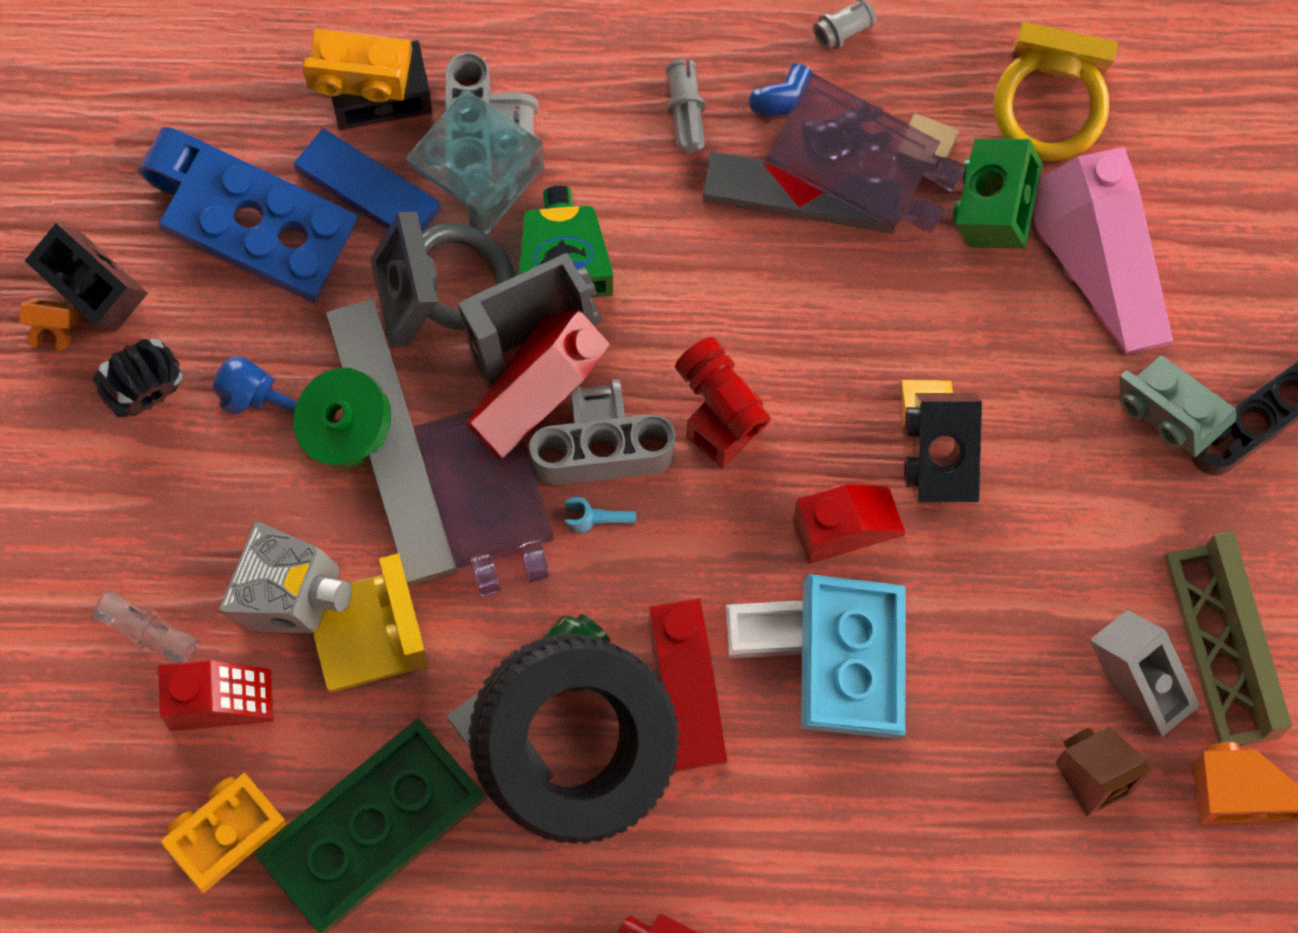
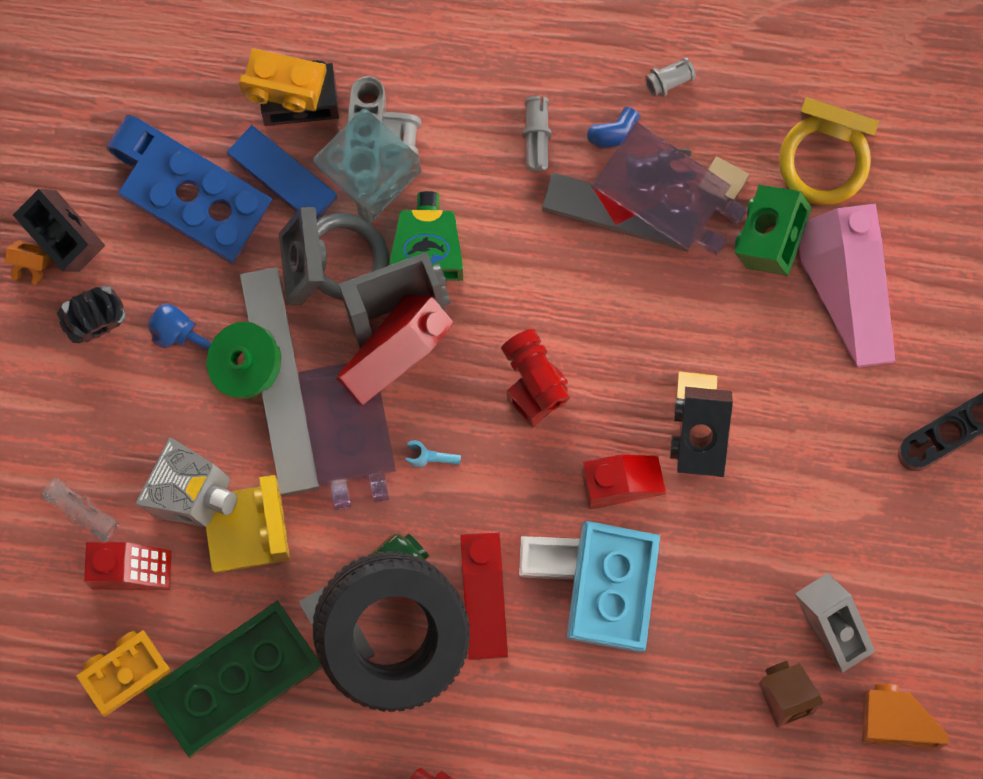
camera: 10 degrees right, 5 degrees up
(596, 420) = (440, 380): light grey piece -> none
(1175, 405) = (889, 414): sand green bracket -> none
(1246, 637) = (917, 601): olive fence -> none

